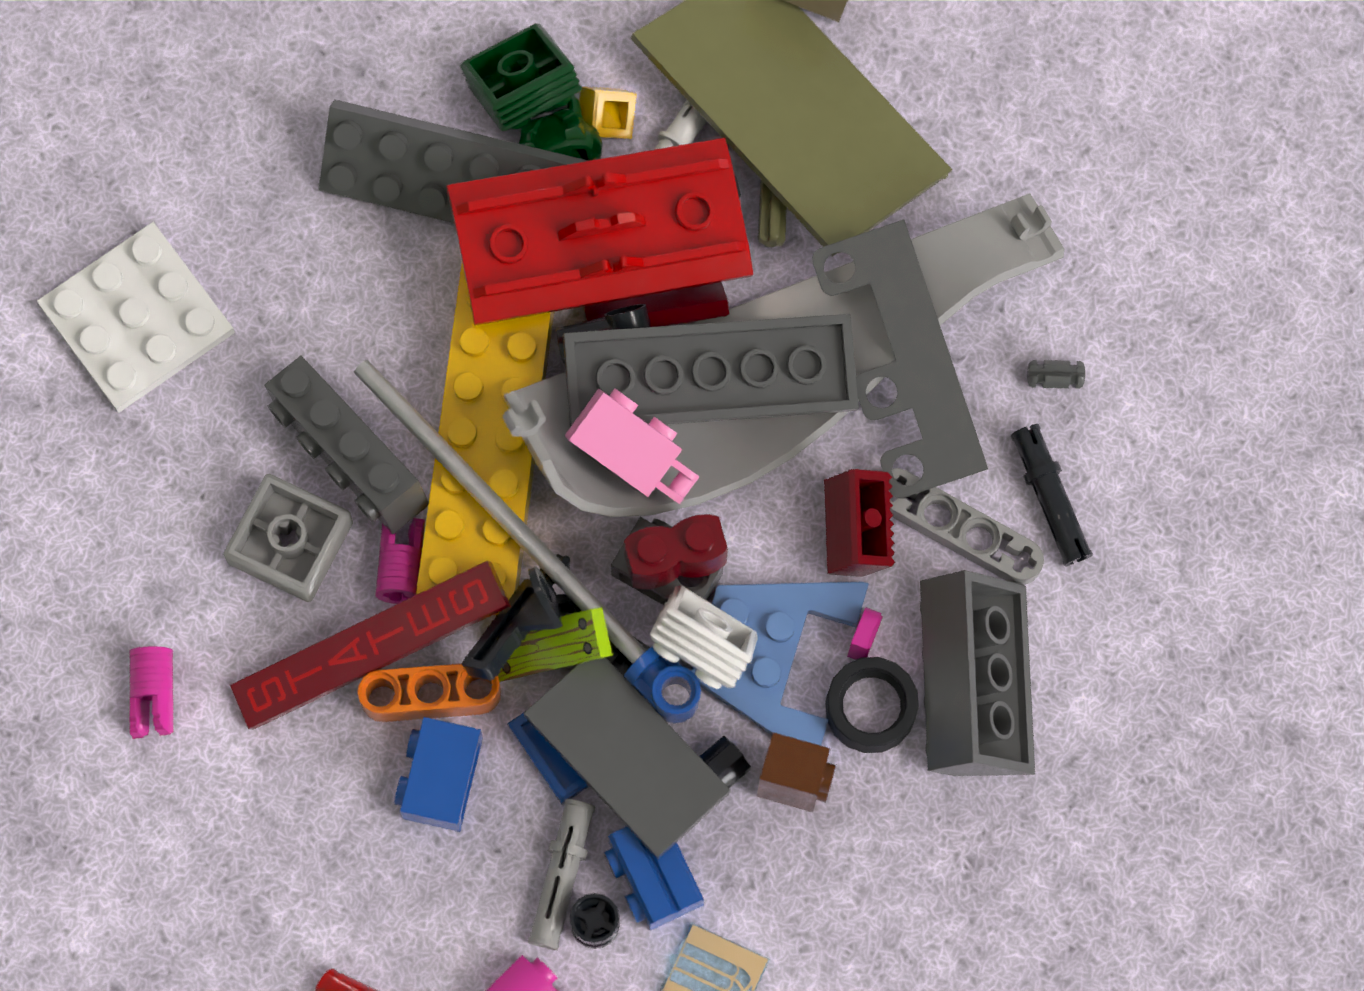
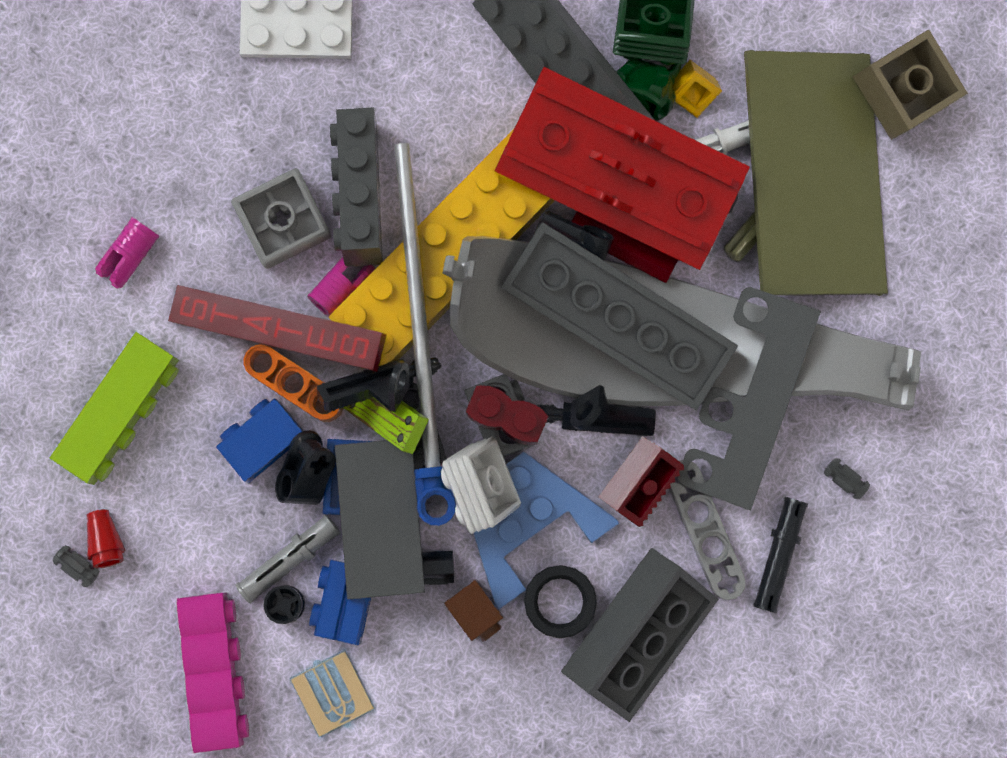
camera: 40 degrees right, 10 degrees up
(263, 857) = (114, 410): none -> lime brick
(515, 770) = (305, 470): none -> black piece
(630, 446) = (528, 327): bright pink brick -> none
(759, 495) = (594, 414): none -> black piece
(865, 634) = (592, 553): dark pink tile -> none

